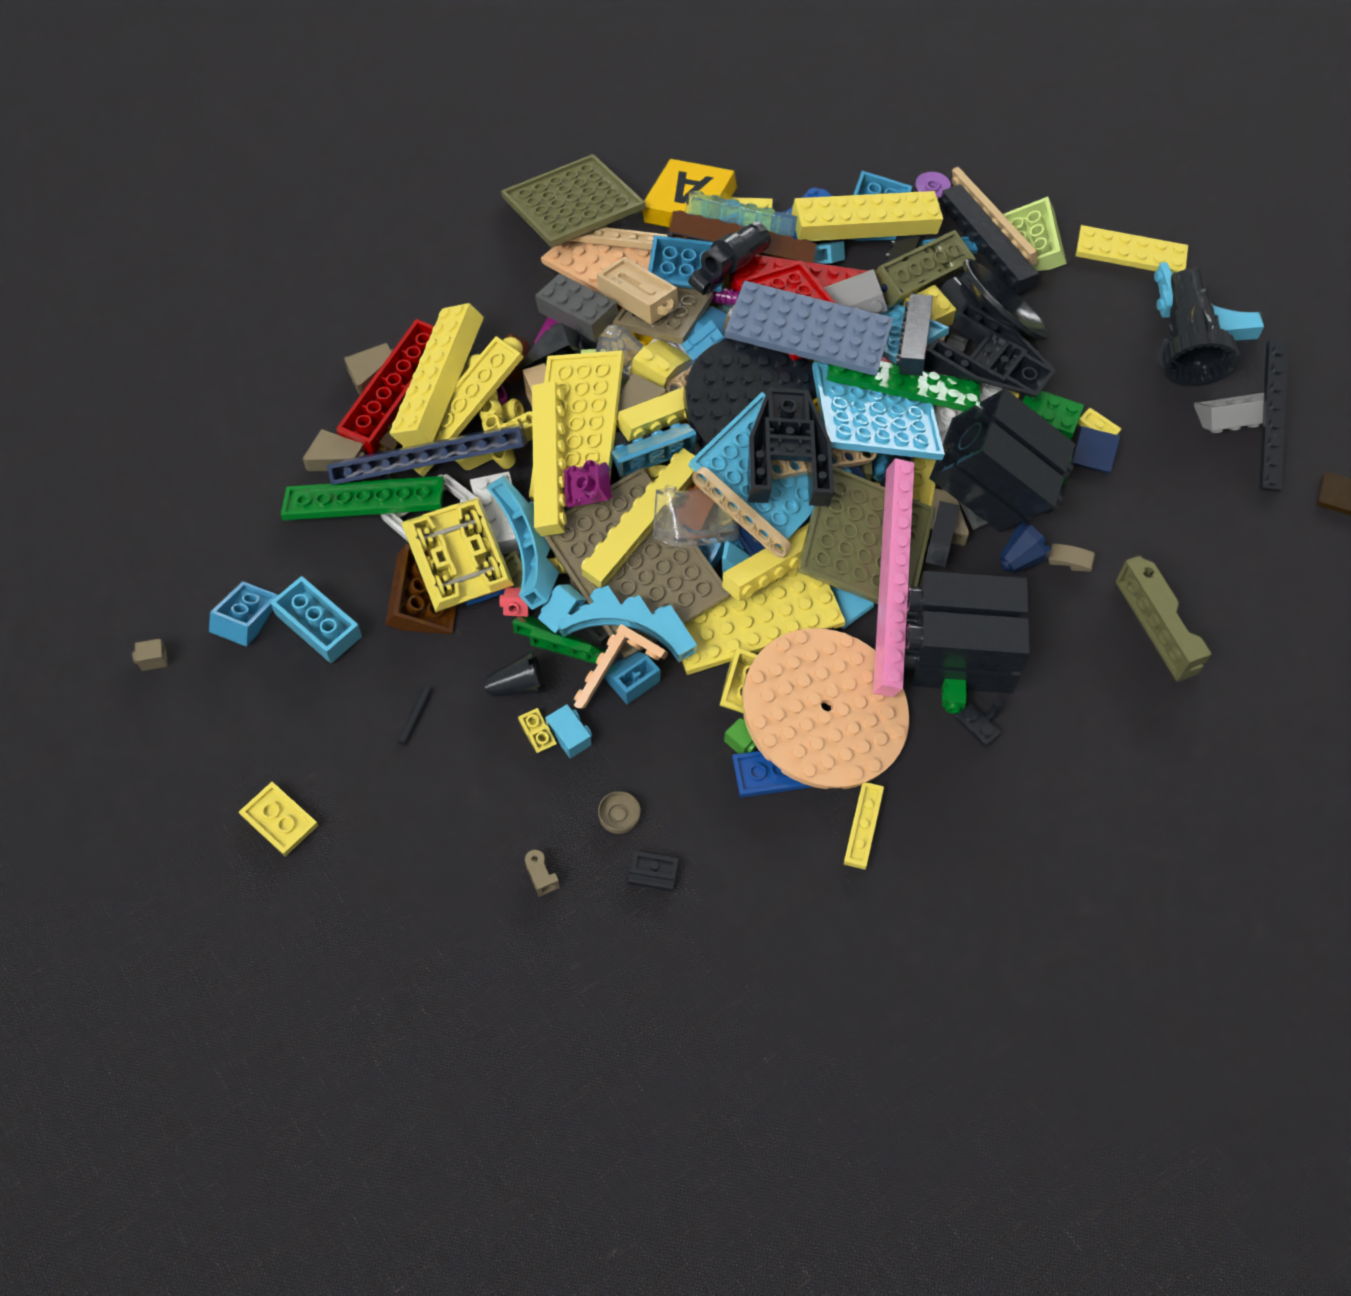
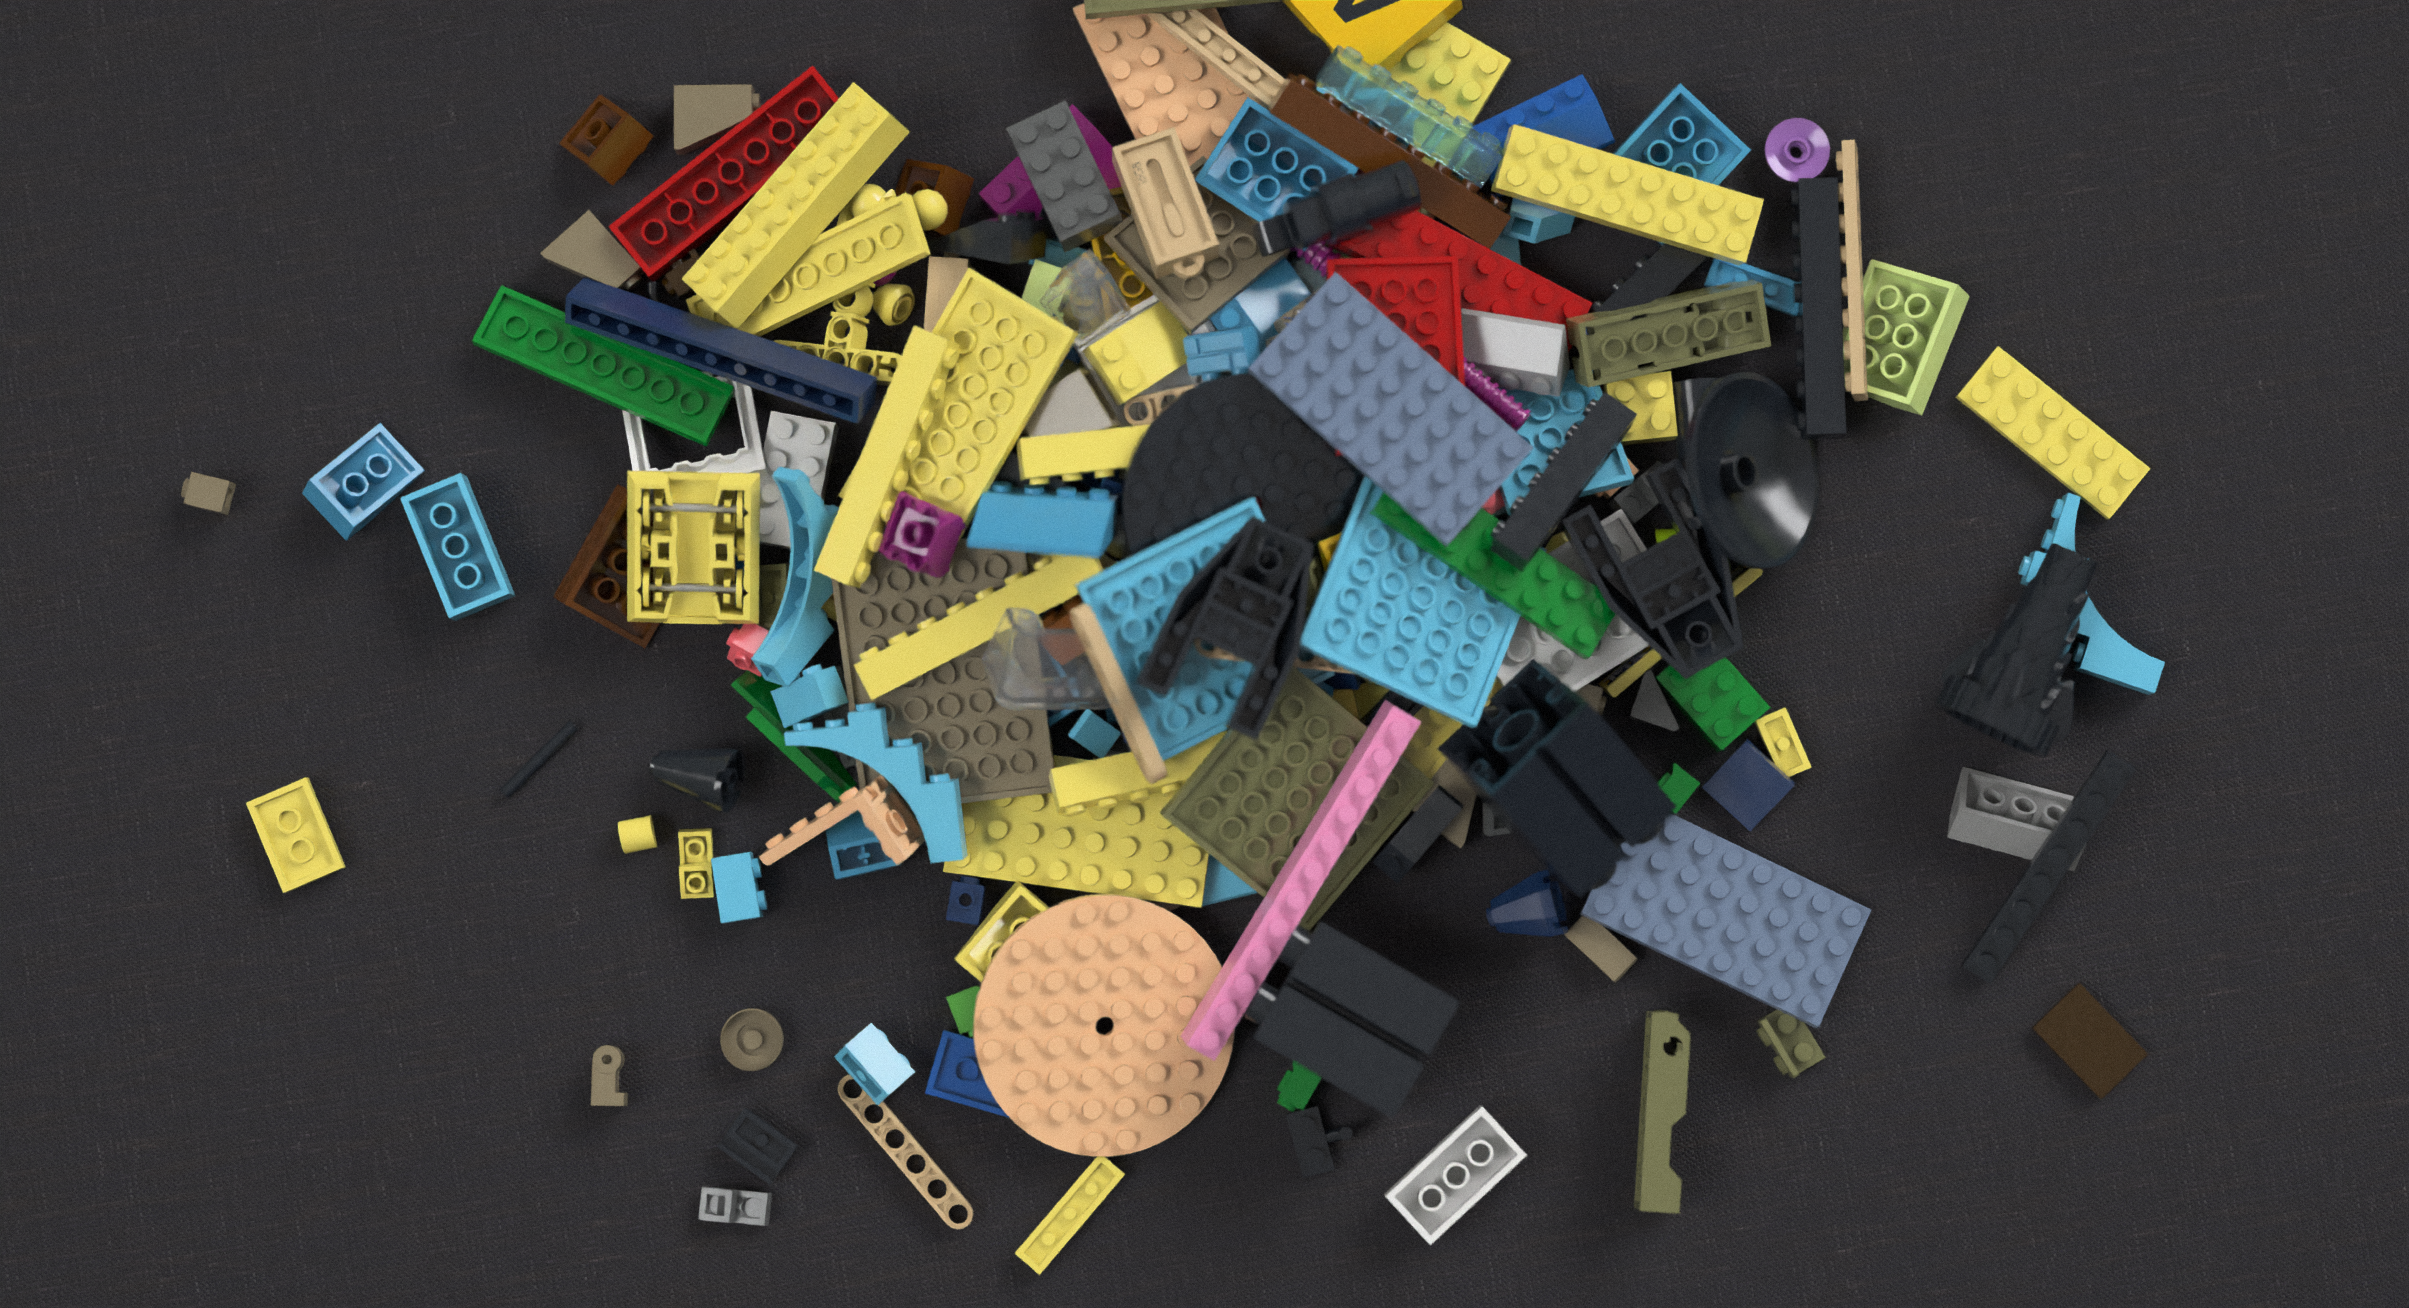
camera: 30 degrees right, 25 degrees up
(318, 399) = (606, 139): none -> reddish brown slope
(494, 730) = (637, 834): none -> light yellow brick
(656, 915) = (735, 1206): none -> slope
(701, 790) = (874, 1063): none -> brick
(708, 682) = (966, 901): none -> dark blue brick
(744, 838) = (901, 1155): none -> tan beam
(1072, 701) = (1455, 1174): none -> white brick
(1130, 514) = (1732, 917): none -> sand blue plate
(1200, 560) = (1791, 1042): none -> olive bracket

